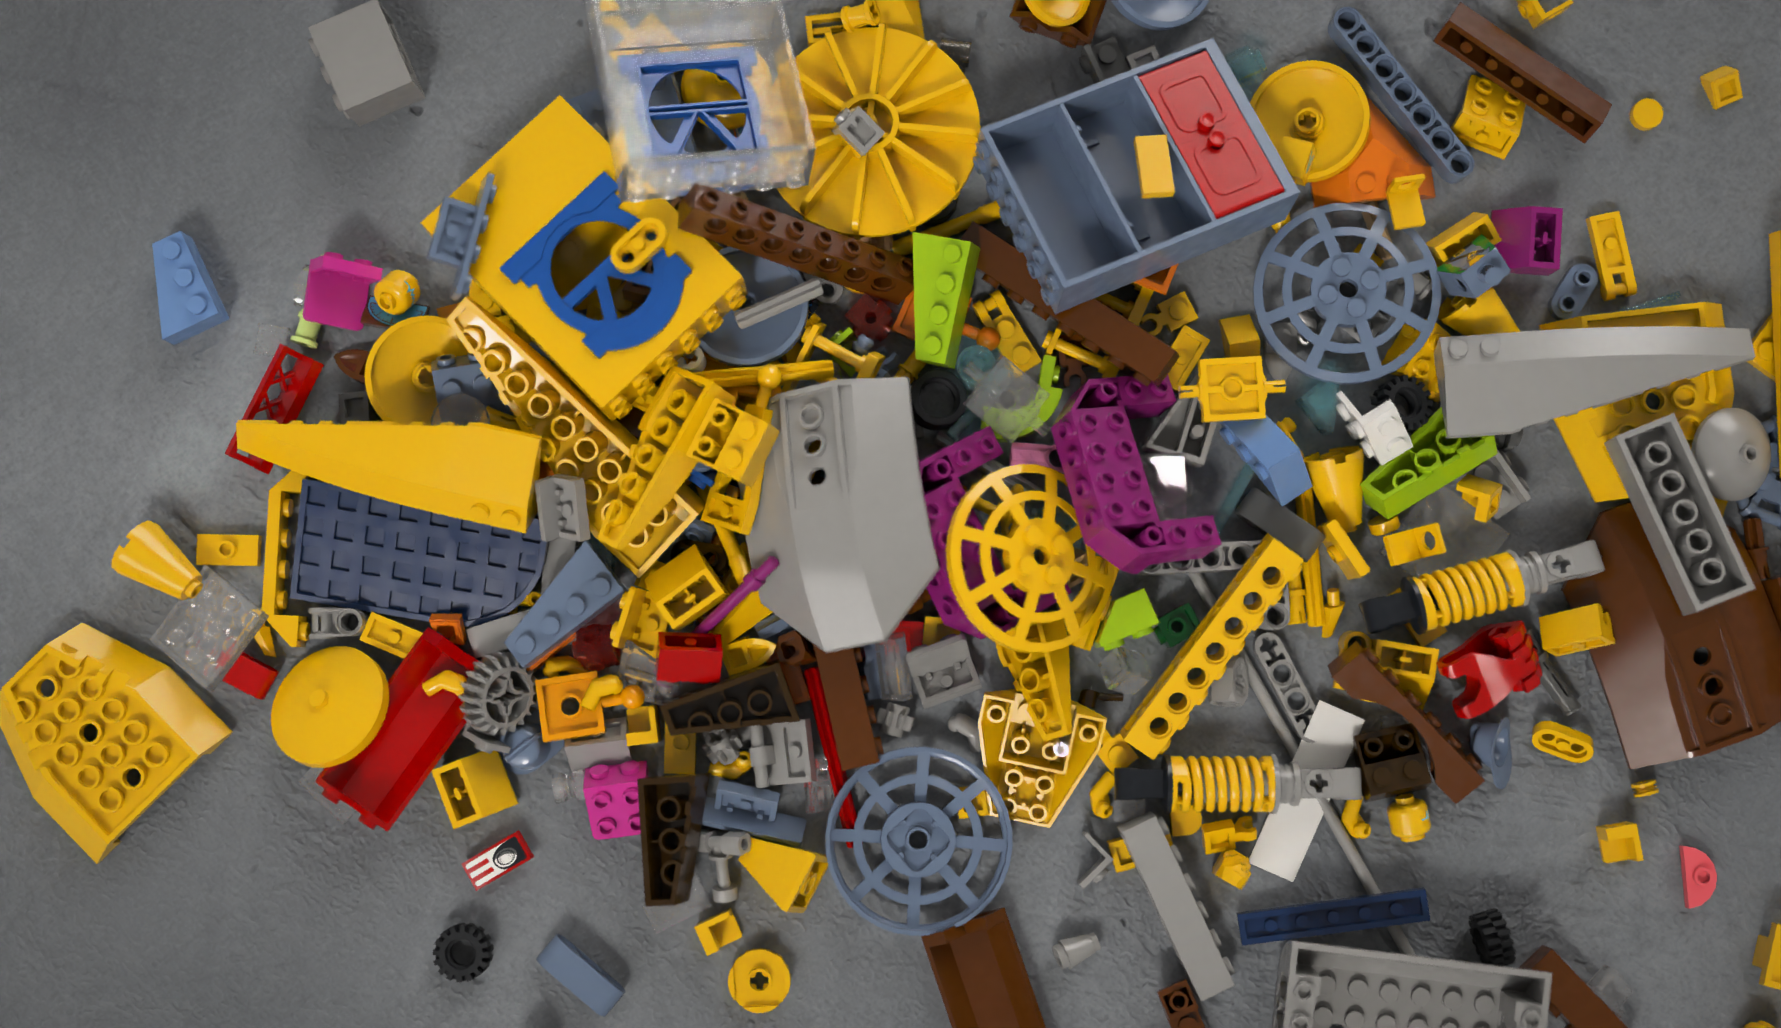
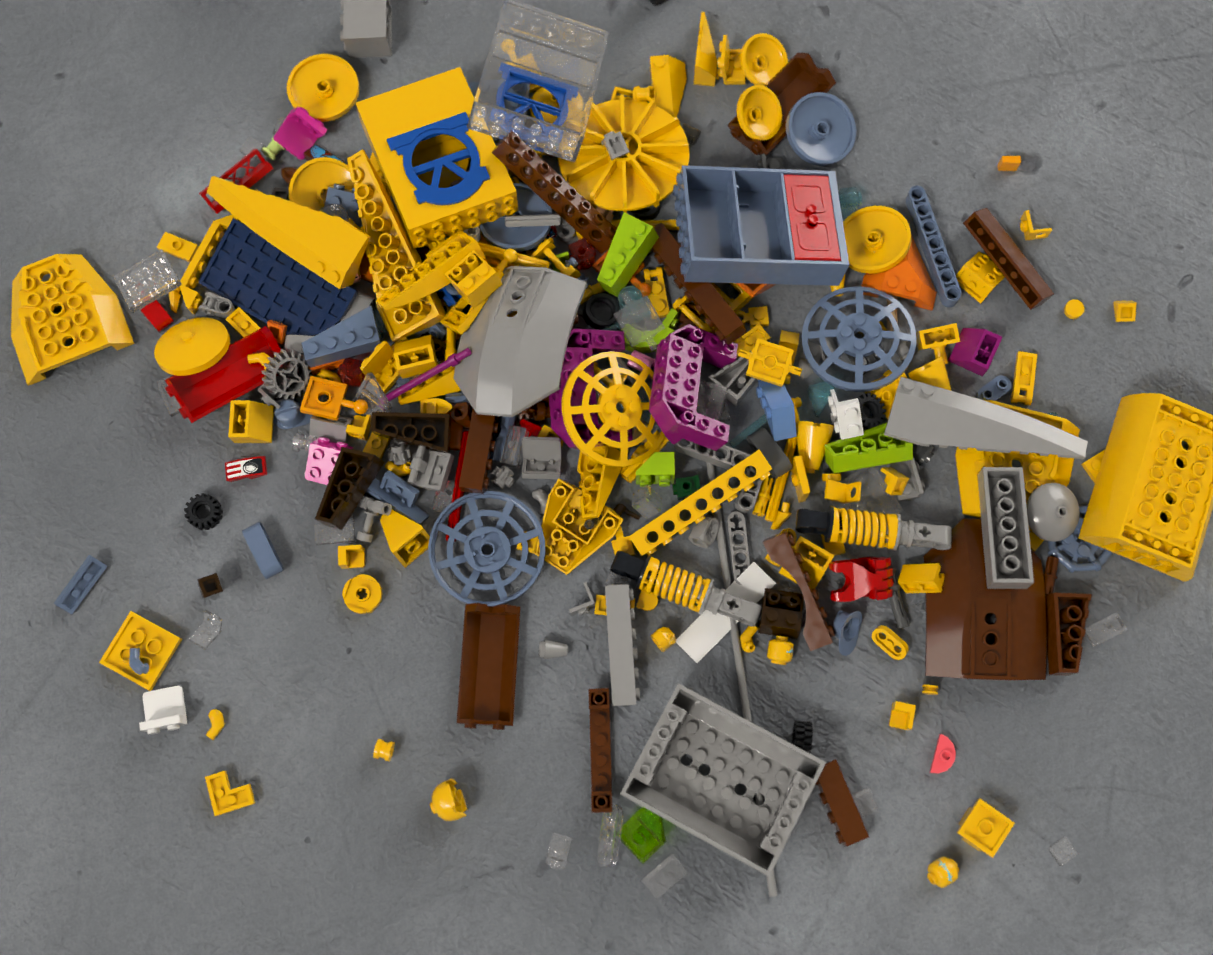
camera: 25 degrees right, 10 degrees down
(157, 562) = (135, 234): yellow cone -> none
(184, 290) = (217, 104): medium blue wedge -> none
(342, 198) = (323, 86): none -> yellow dish
(397, 292) = (330, 145): yellow head -> none
(457, 234) = (371, 111): sand blue bracket -> none
(562, 508) = (365, 283): light grey bracket -> none
(601, 687) = (344, 392): yellow arm -> none
(635, 243) = (465, 152): yellow plate -> none
(689, 657) = (400, 393): red brick -> none
(1100, 797) = (603, 568): yellow arm -> none
(1154, 166) = (770, 219): yellow tile -> none
(1223, 834) = (665, 617): yellow plate -> none
(1297, 157) = (858, 254): yellow brick -> none
(1333, 916) = (713, 689): dark blue plate -> none
(1405, 202) = (911, 298): yellow bracket -> none
(1475, 267) = (935, 348): sand blue torso -> none

